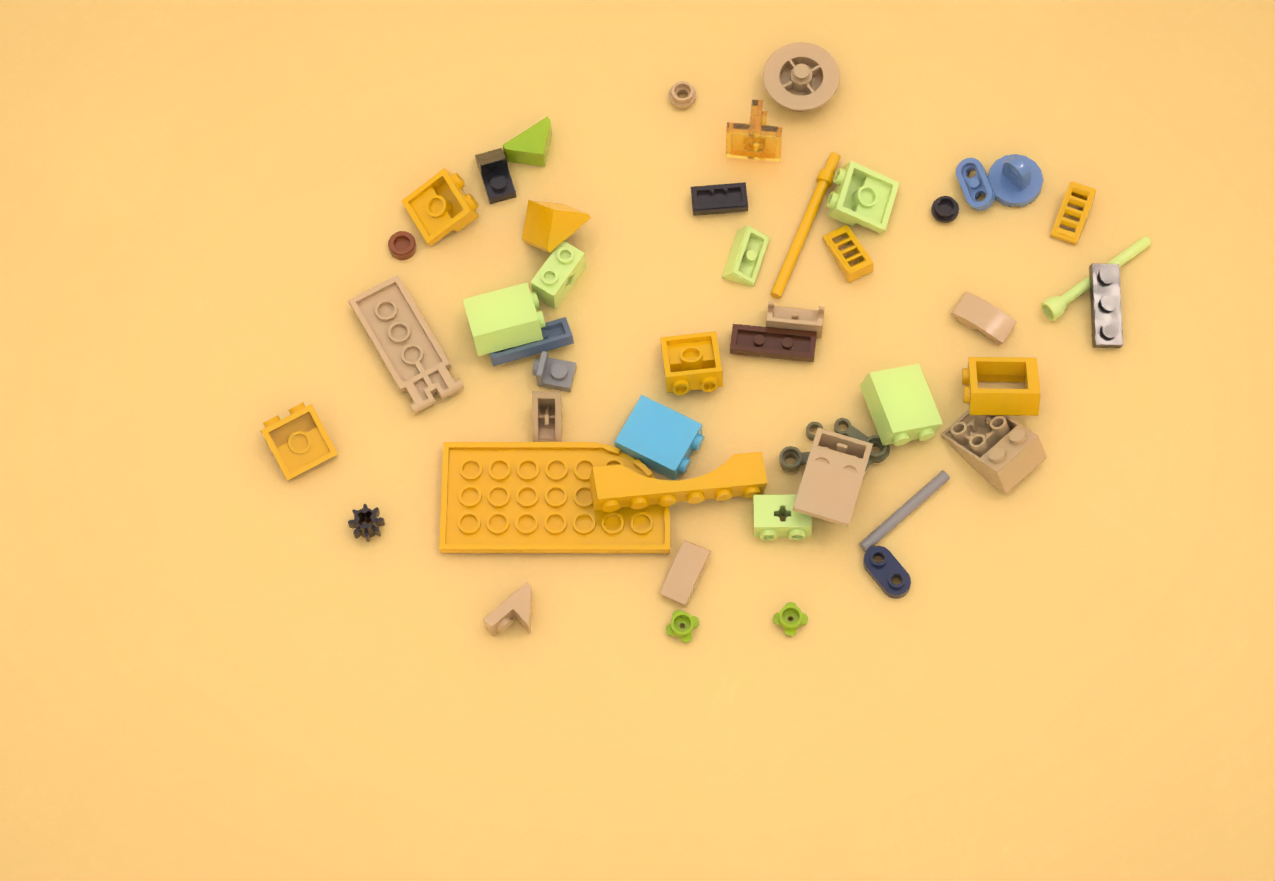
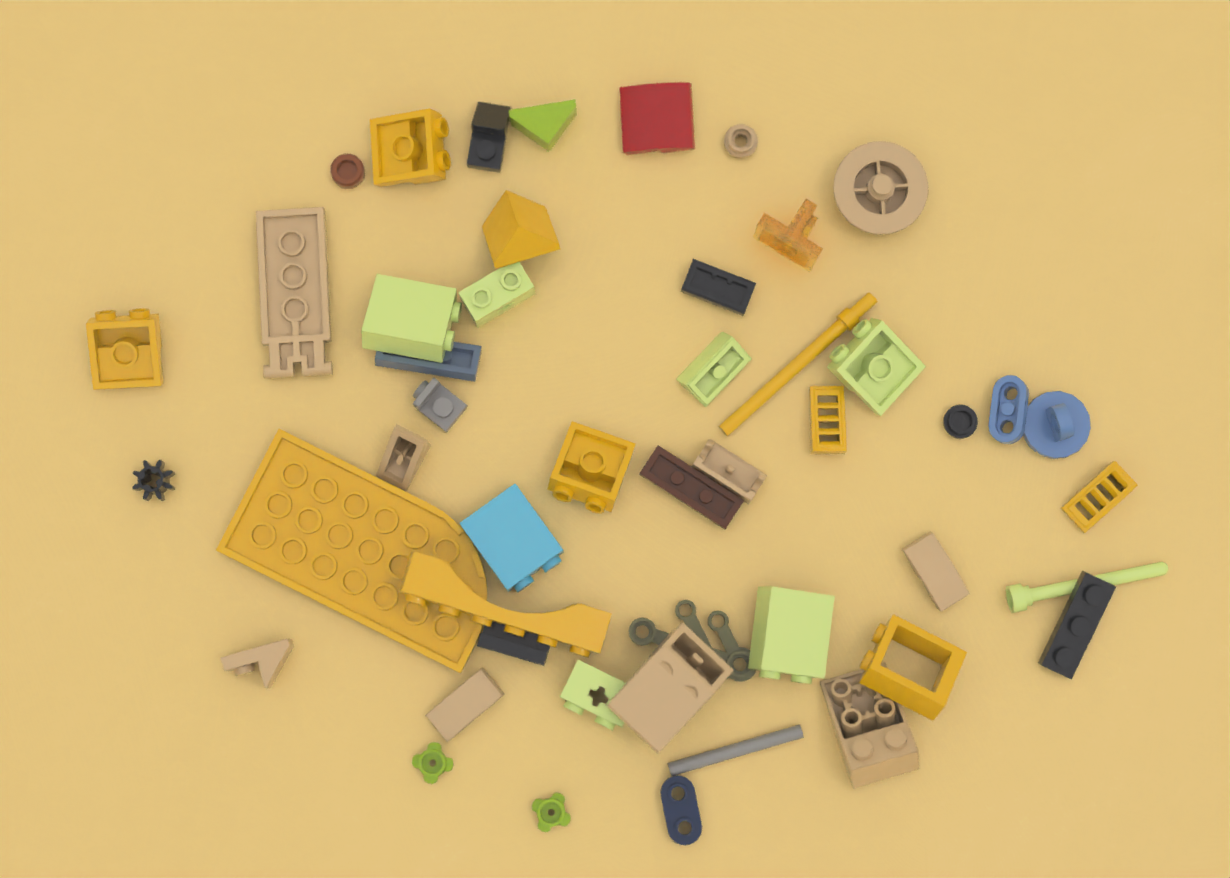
camera: 20 degrees right, 15 degrees up
(613, 106) = (657, 117): none -> red slope
(704, 513) = (524, 647): none -> black panel

